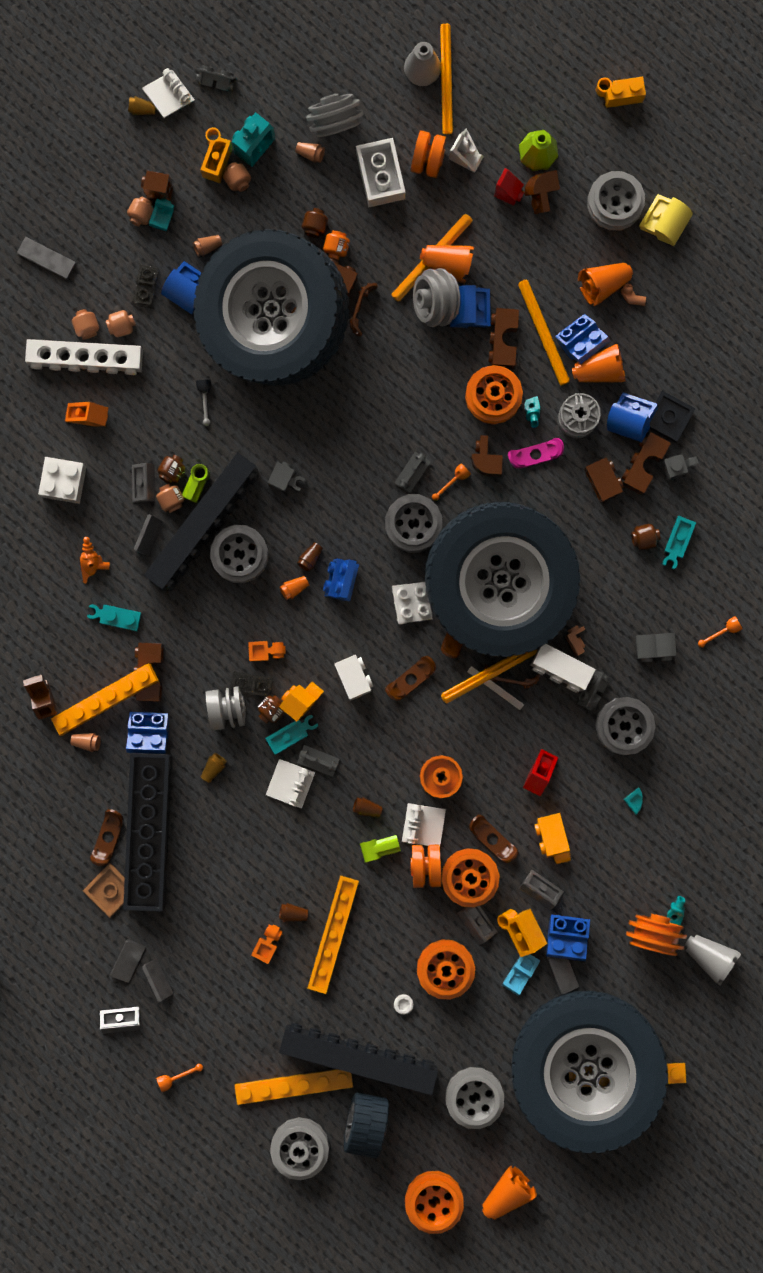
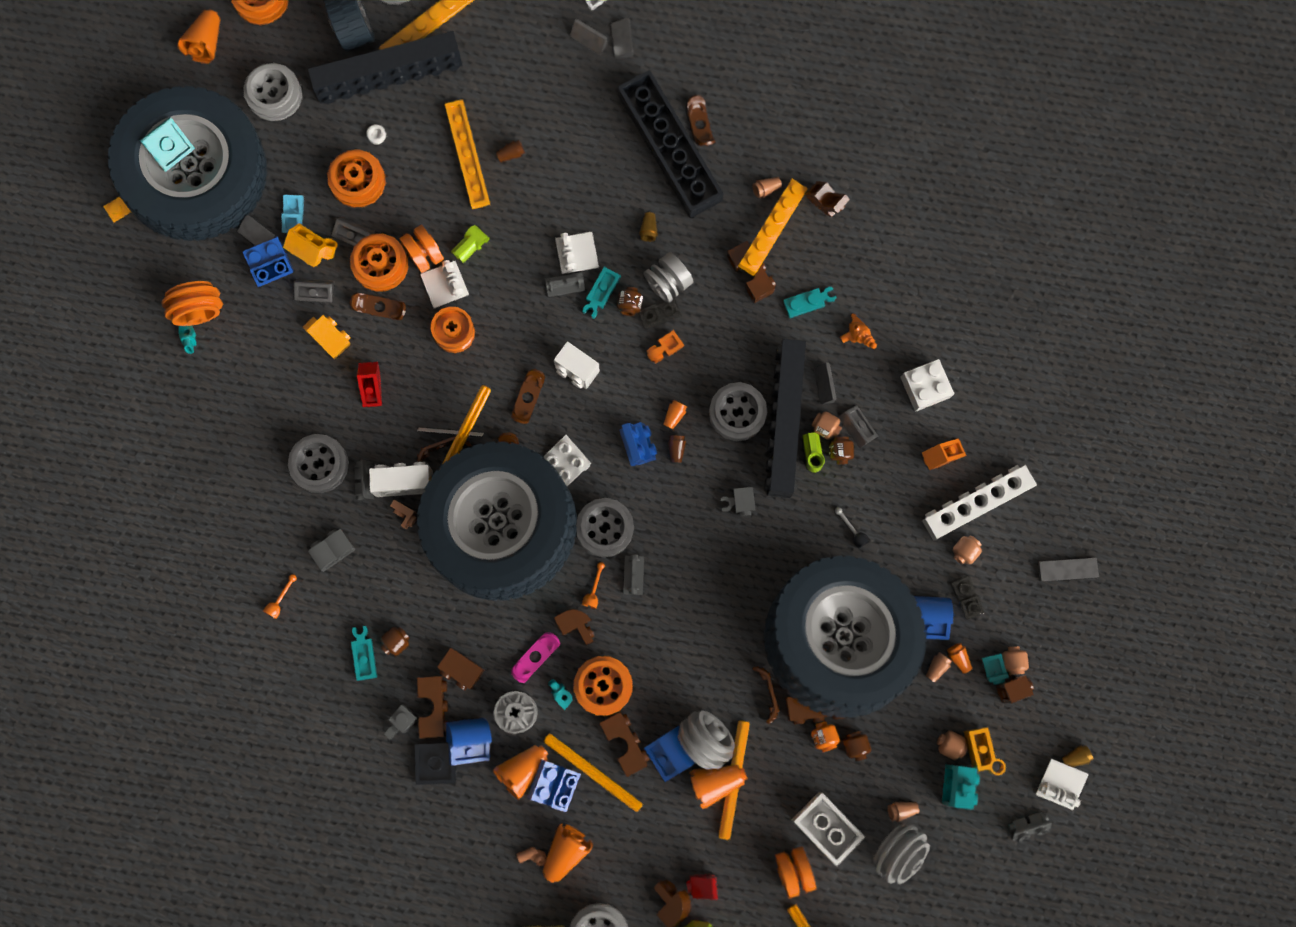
camera: 145 degrees right, 5 degrees down
(85, 324) = (996, 531): nougat head -> none
(107, 890) = (674, 83): medium nougat tile -> none
(147, 733) = (720, 221): blue brick -> none
(184, 241) = (959, 656): none -> orange cone
(264, 948) = (516, 112): orange plate -> none
(299, 700) = (610, 320): light orange hinge -> none
(366, 807) = (501, 269): reddish brown cone -> none
(465, 152) = (763, 898): white slope -> none
(598, 1095) = (167, 144): none -> tile
(634, 800) = (276, 409): teal tile -> none
(712, 957) = (134, 316): light grey cone -> none

